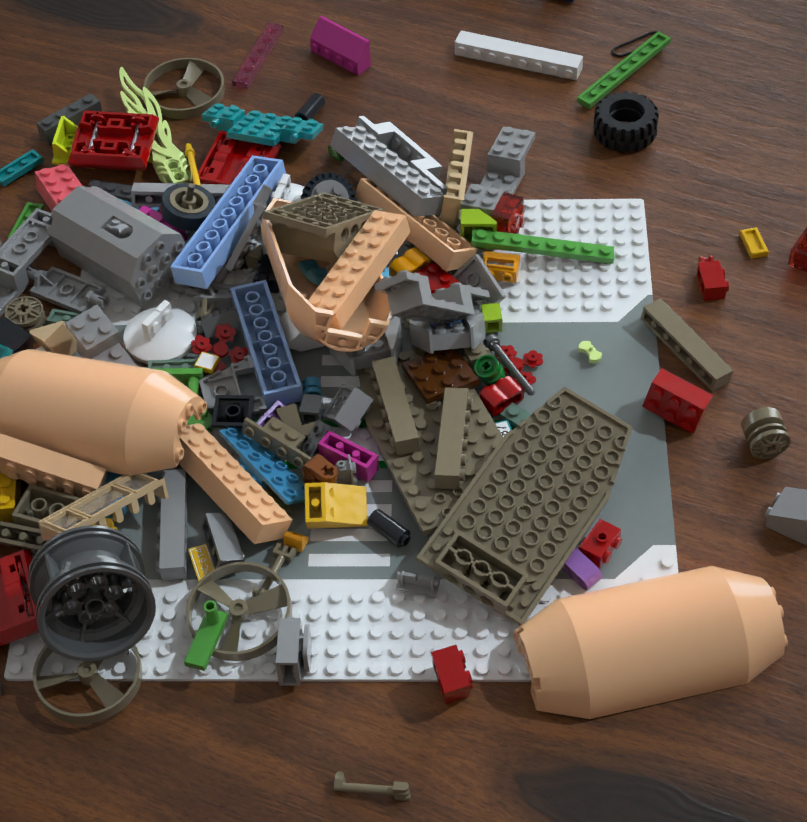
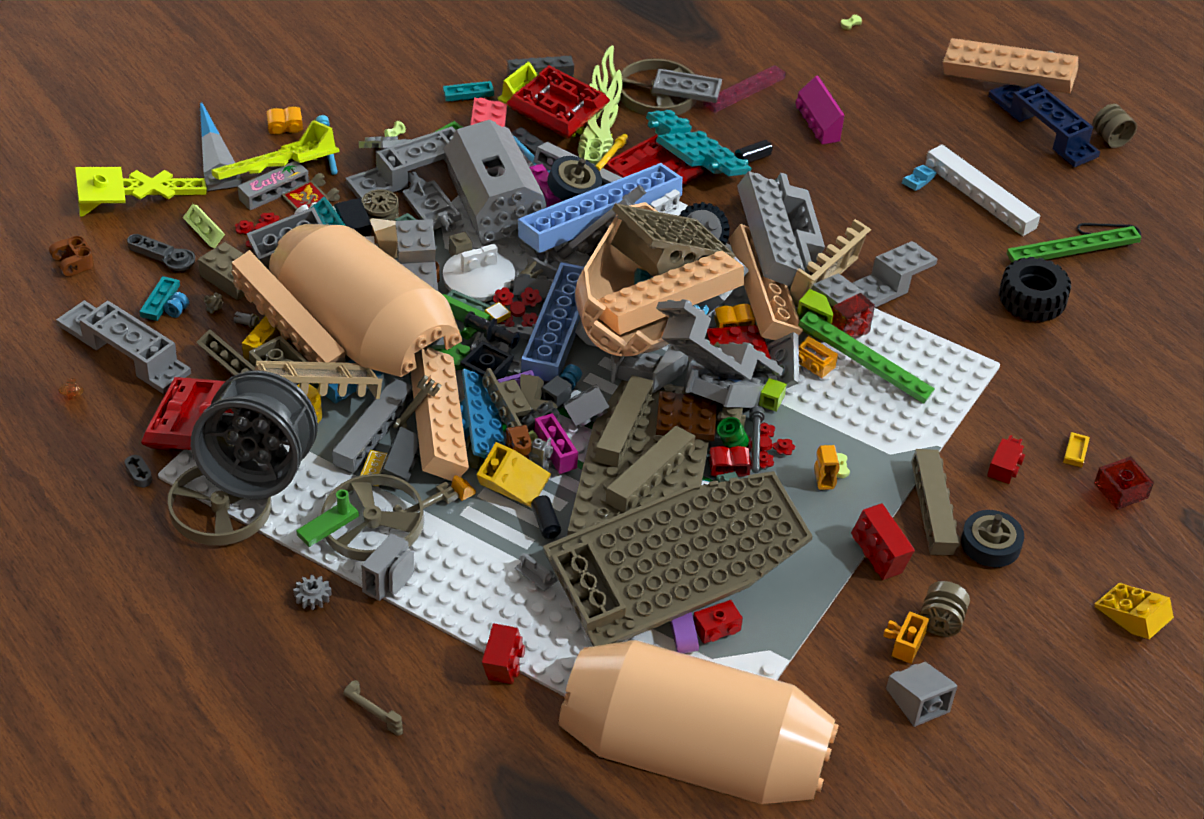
camera: 25 degrees right, 5 degrees down
(124, 315) = (459, 243): none -> dark tan brick
(209, 465) = (425, 389): none -> dark tan hinge
(211, 74) = (687, 85): none -> light grey tile
(217, 381) = (491, 330): none -> black piece
(235, 711) = (312, 592): none -> light grey gear
(460, 68) = (919, 178): none -> medium azure slope
(586, 359) = (826, 467): none -> light orange brick
(753, 352) = (992, 538): none -> wheel
(755, 472) = (908, 636): none -> light orange brick

